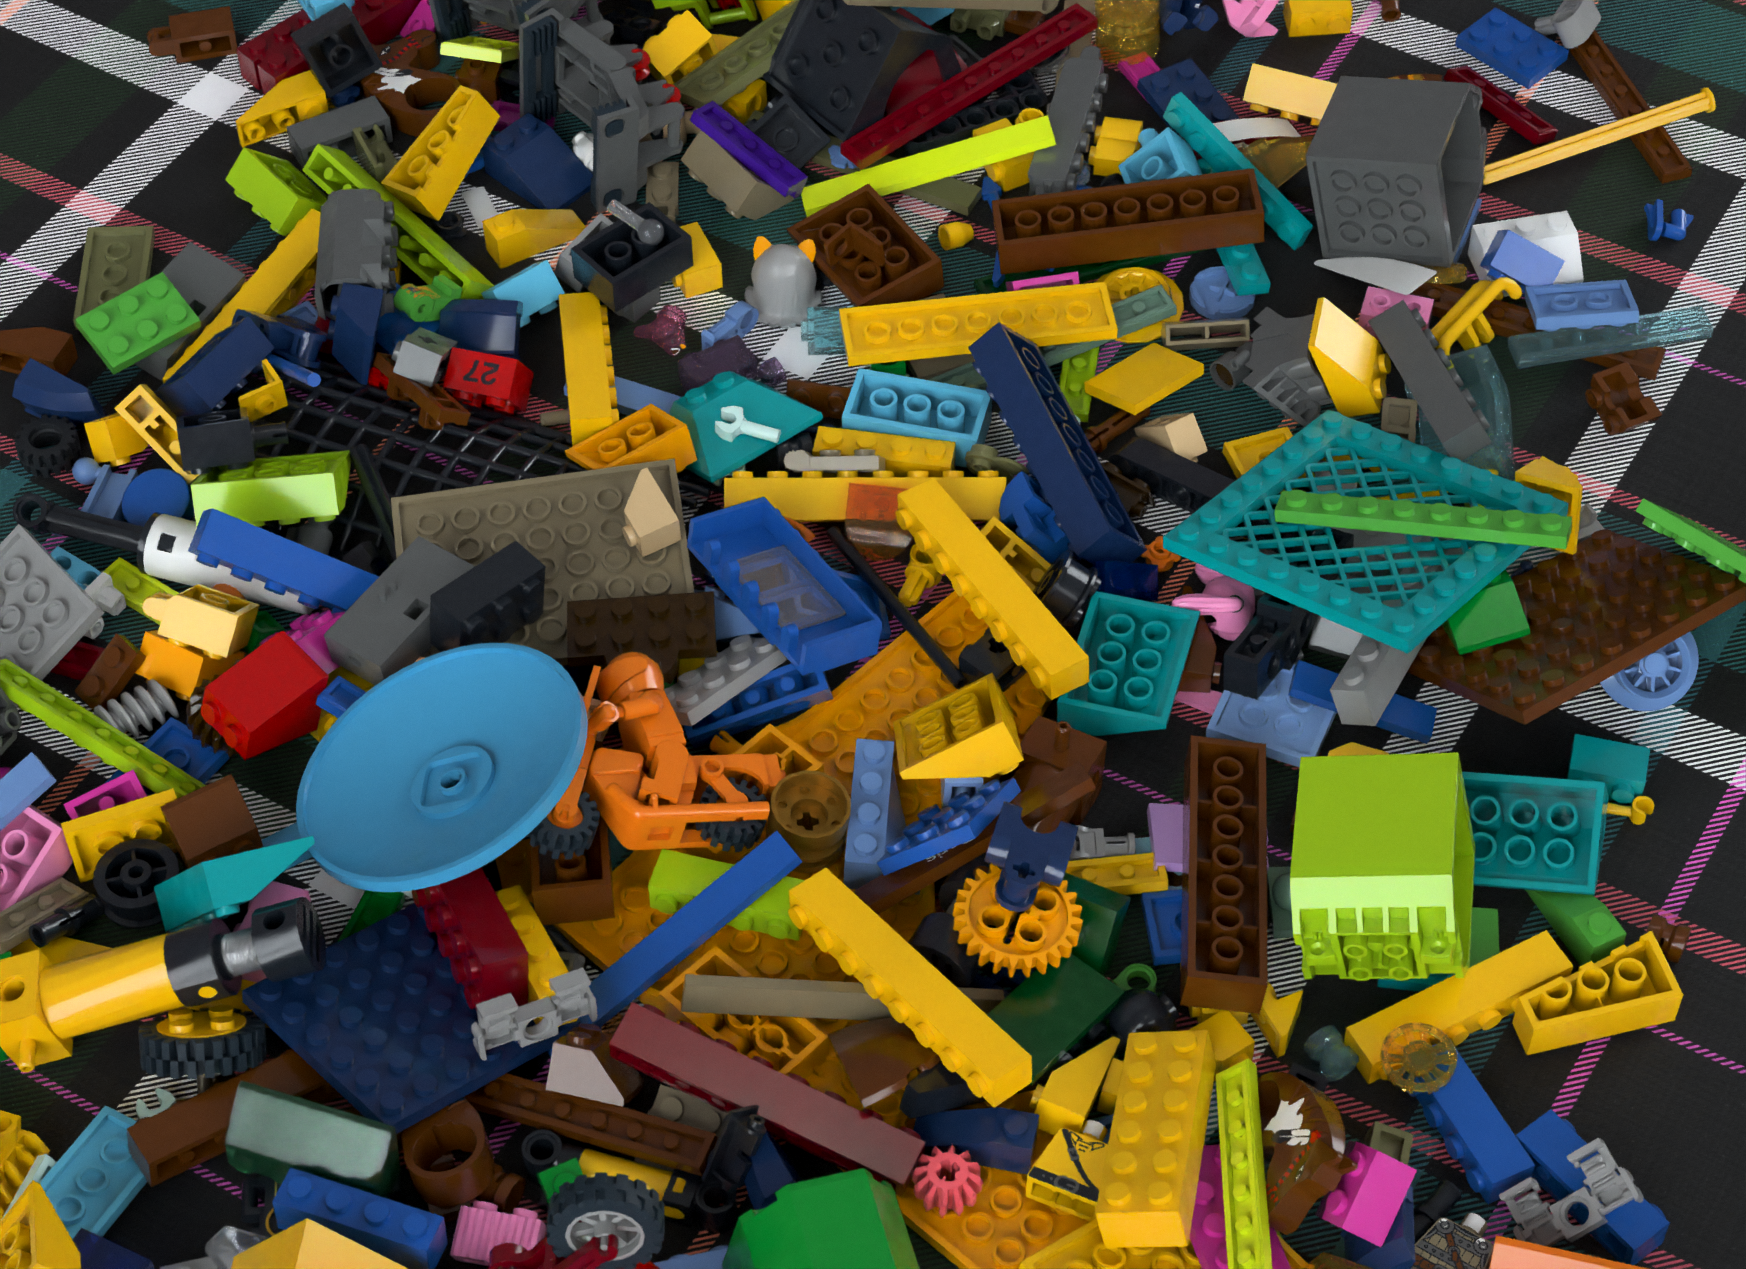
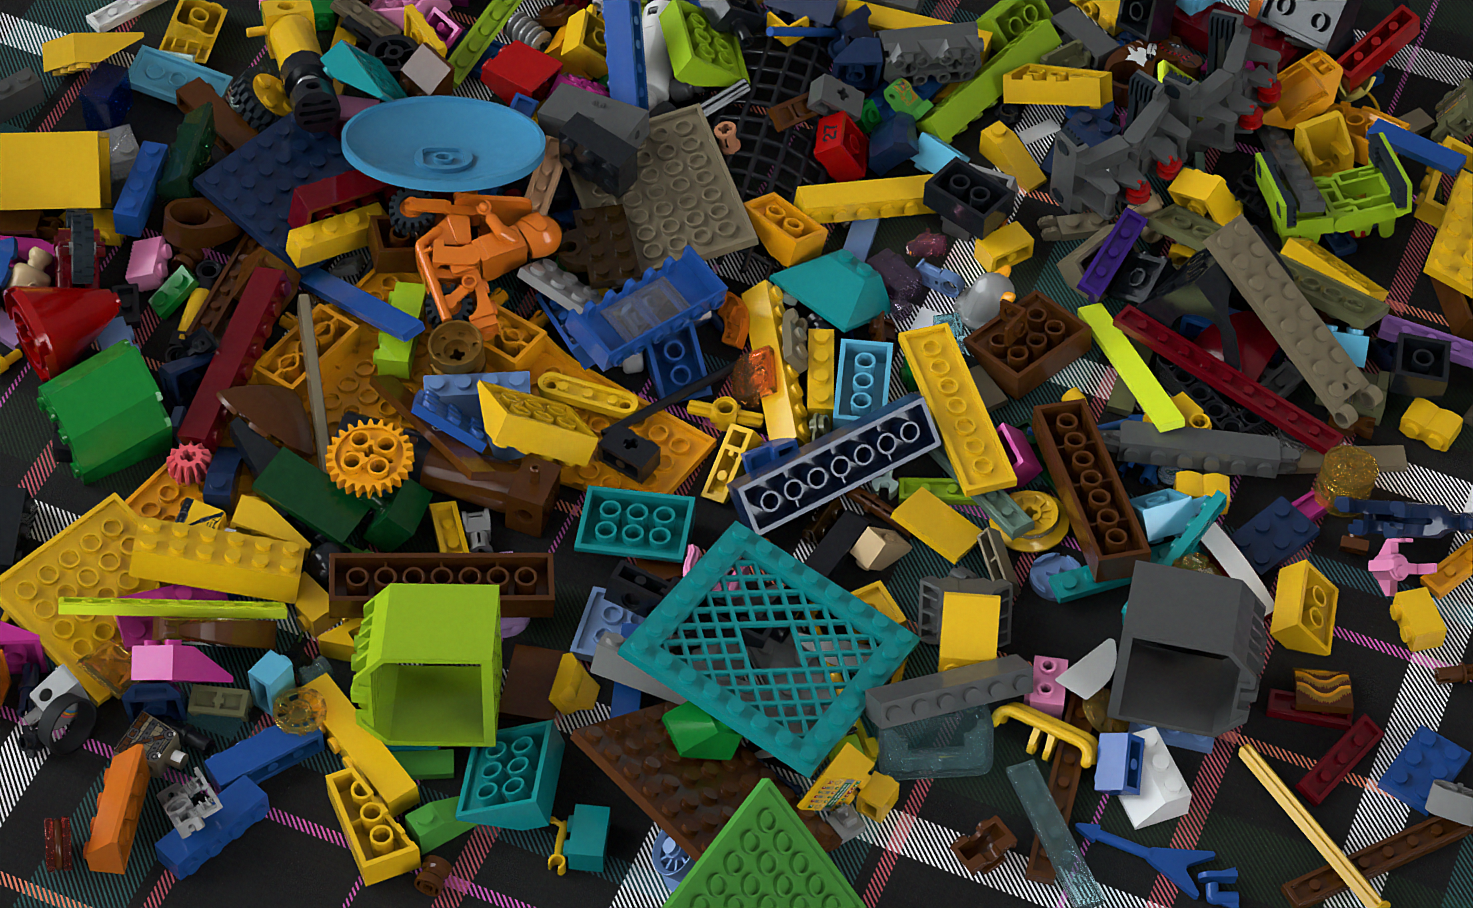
camera: 80 degrees right, 0 degrees up
(461, 473) = (727, 137): none -> nougat bush
(504, 1021) = (279, 235): light grey piece -> none
(648, 230) = (981, 194): clear bar -> none
(649, 517) = (698, 227): tan slope -> none
(742, 426) = (816, 282): light aqua bar -> none
(887, 692) = (587, 395): none -> yellow plate
(910, 988) = (307, 406): yellow brick -> none
(993, 589) = (673, 429): yellow brick -> none
(1027, 857) = (401, 445): dark blue piece -> none
(1066, 588) = (694, 481): black wheel -> none
(1128, 579) = (715, 516): clear blue plate -> none
(1209, 40) = (1354, 544): none -> reddish brown plate
(1362, 1091) = (270, 679): none -> medium azure brick
(1424, 519) = (767, 672): bright green plate -> none
(1581, 305) = (1076, 805): medium blue plate -> none
(1633, 259) = (1167, 861): none -> blue piece

